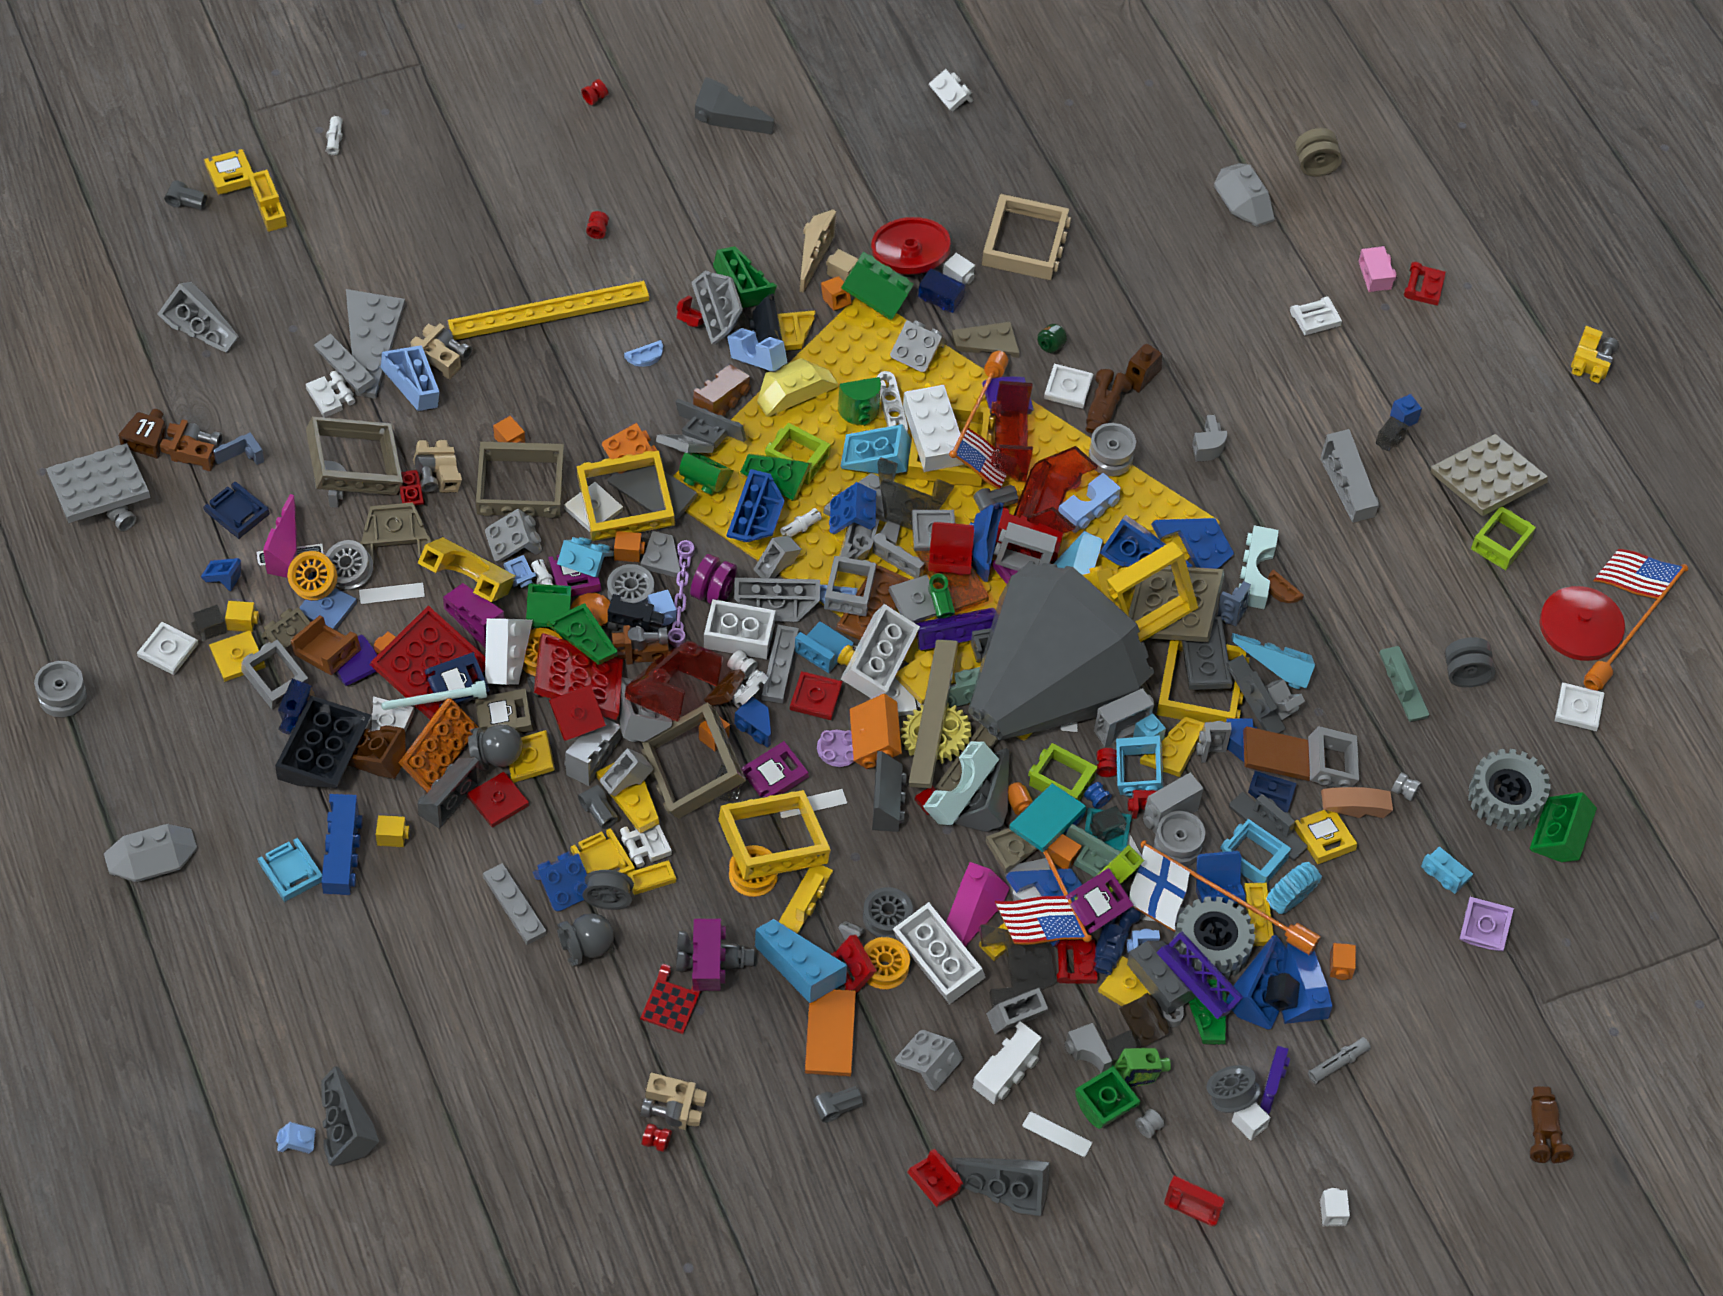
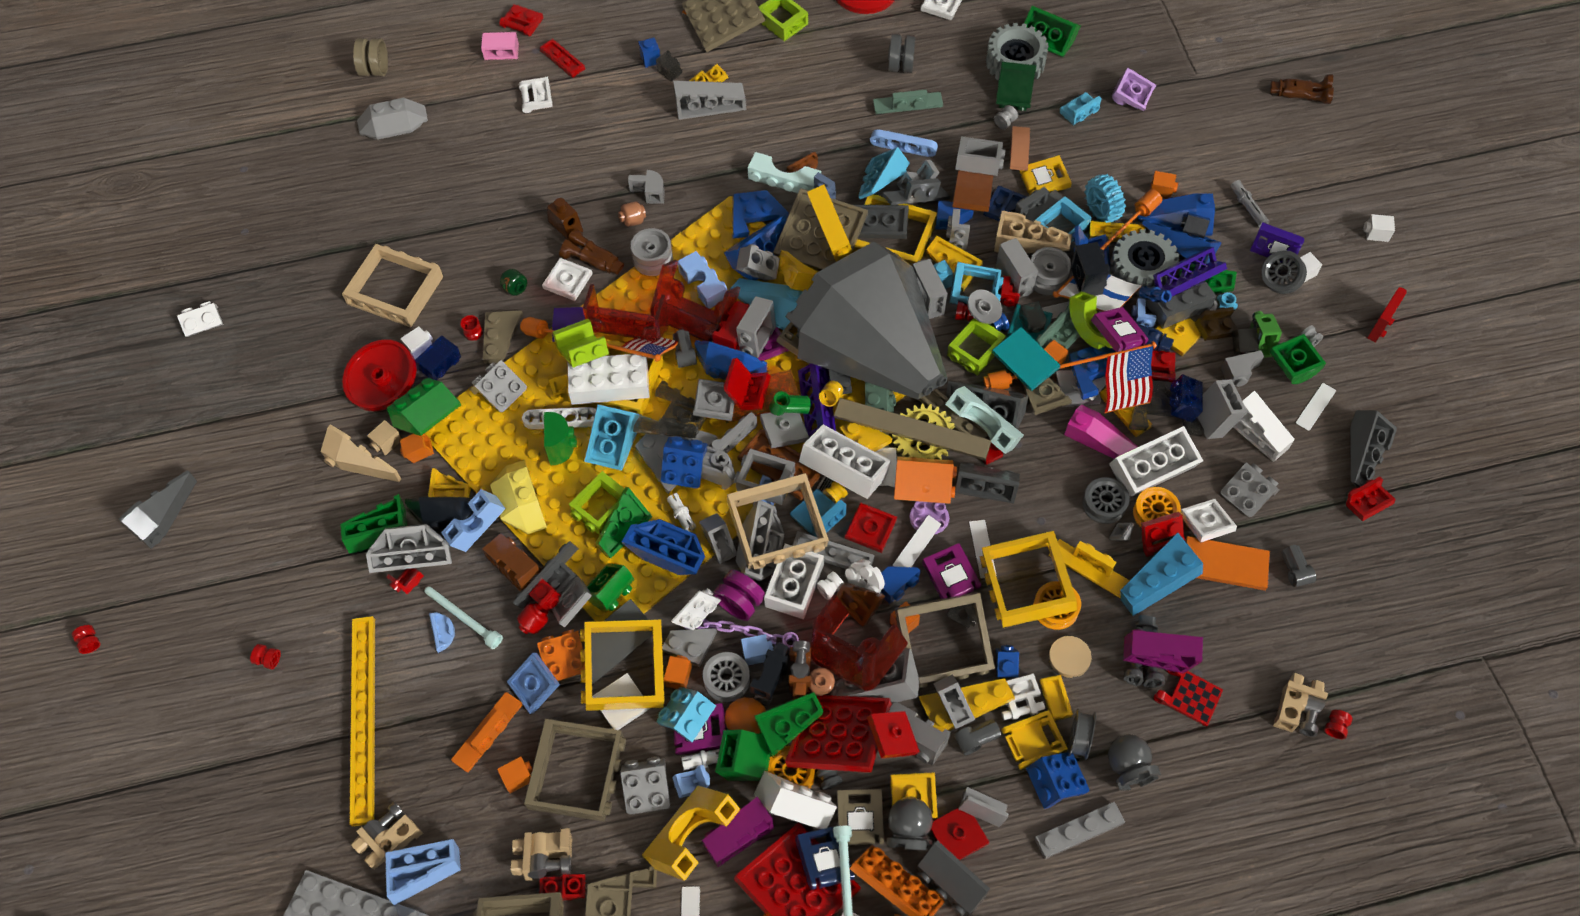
camera: 75 degrees left, 5 degrees up
(526, 815) = (983, 807): none -> light grey panel
(549, 407) = (486, 732): none -> orange bracket
(599, 431) = (533, 683): none -> medium blue plate
(634, 664) = (821, 681): none -> nougat head
(643, 392) = (491, 638): none -> light aqua piece
(665, 420) = (532, 619): none -> red head
(682, 828) = (1007, 661): none -> blue bracket
(687, 541) = (696, 609): none -> white hinge
(689, 423) = (545, 595): none -> red bracket
(698, 887) = (1070, 656): none -> tan tile
(779, 560) = (767, 491): none -> tan window
(802, 737) = (917, 543): none -> white sticker
(879, 1012) = (1208, 520): none -> white plate
(960, 631) = (831, 393): none -> yellow wheel
(963, 392) = (579, 343): none -> lime panel
(987, 312) = (471, 327): none -> red wheel
(1022, 978) = (1186, 398): none -> clear blue brick
(1109, 545) = (758, 263): none -> light grey brick
(1109, 759) = (984, 306): none -> light grey dish
(1158, 939) = (1155, 294): none -> blue pin
(1166, 429) = (632, 214): none -> nougat head
(1171, 862) = (1090, 268): none -> black brick
(1186, 1030) = (1227, 297): none -> medium azure plate
(1223, 809) = (1030, 234): none -> tan wedge
(1337, 682) = (928, 147): none -> light blue beam
(1379, 332) = (562, 58): none -> red tile
(1383, 477) = (715, 74): none -> yellow slope
(1452, 789) = (1015, 85): none -> dark green panel

